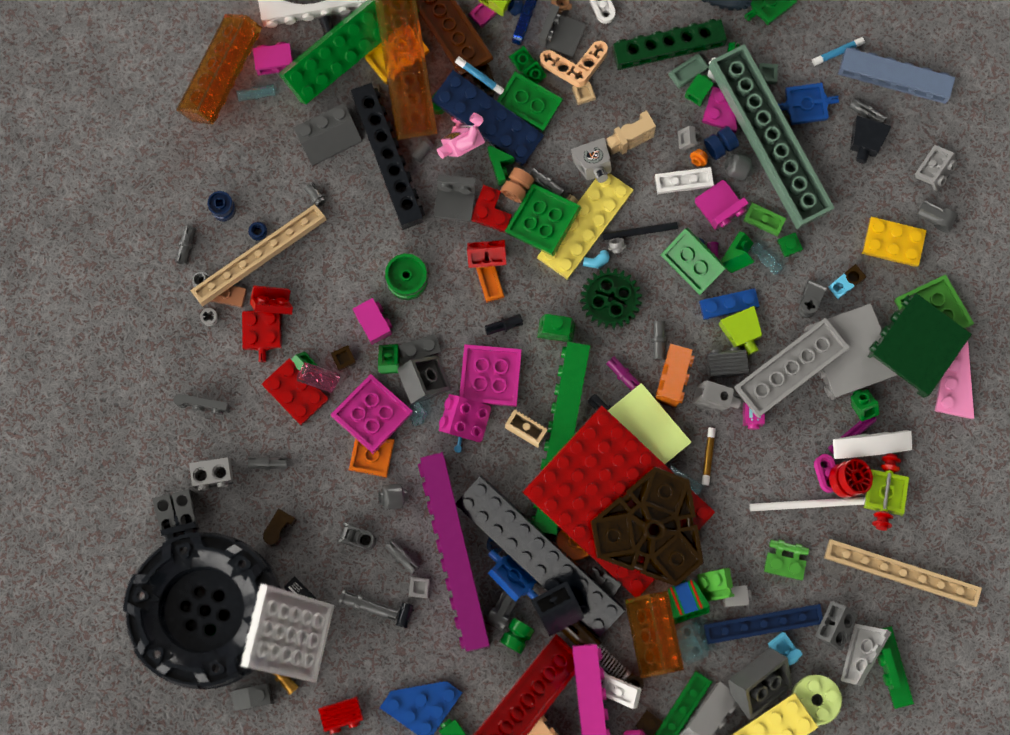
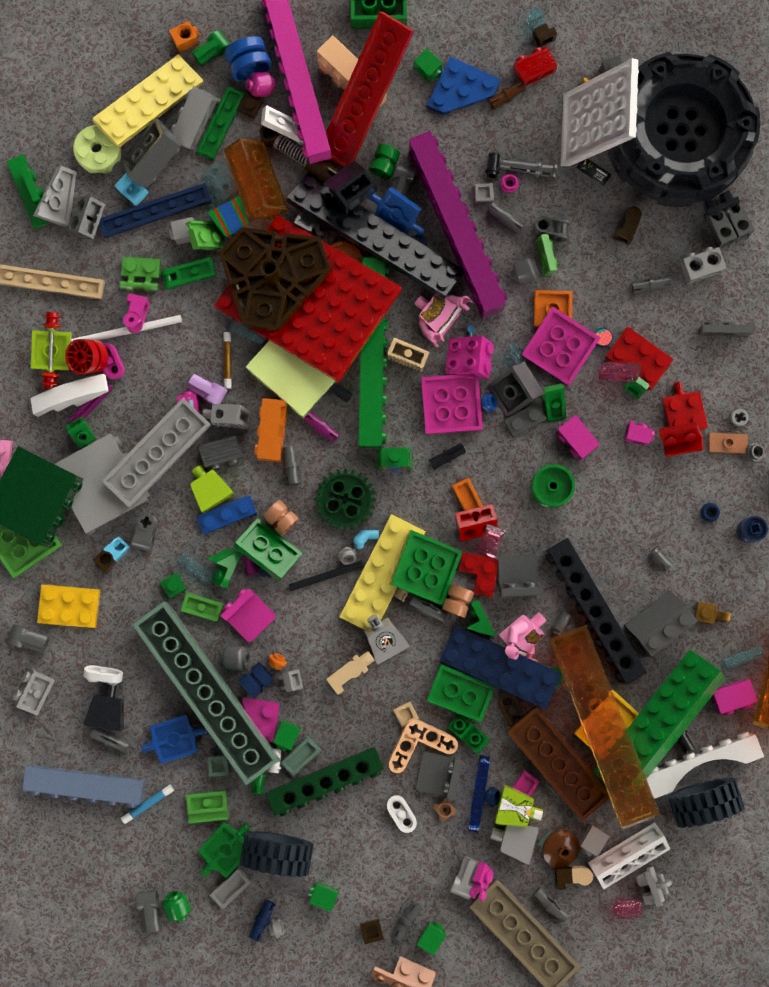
camera: 170 degrees right, 5 degrees up
(258, 255) = (704, 485): tan plate -> none
(279, 139) = (708, 613): none -> pearl gold plate
(311, 315) = (639, 433): none -> dark pink brick
(324, 418) = (605, 337): none -> tile
(343, 358) = (598, 397): dark brown plate -> none
(368, 516) = (547, 259): none -> bright green plate
(376, 689) = (506, 94): none -> reddish brown pin
(384, 593) = (512, 178): none -> dark pink plate
(453, 369) = (488, 403): none -> blue plate
(476, 234) = (490, 540): none -> clear pink plate
(479, 75) = (517, 709): dark azure bar -> none
(489, 462) = (439, 315): none -> bright pink torso
(676, 289) = (280, 517): none -> nougat wheel
(684, 180) = (289, 635): white plate -> none
(729, 425) = (209, 391): none -> lavender piece
(735, 551) = (188, 273): none -> green plate
(782, 39) = (207, 806): none -> bright green plate
(794, 516) = (137, 313): none -> dark pink leg
(867, 171) = (103, 674): none -> white plate

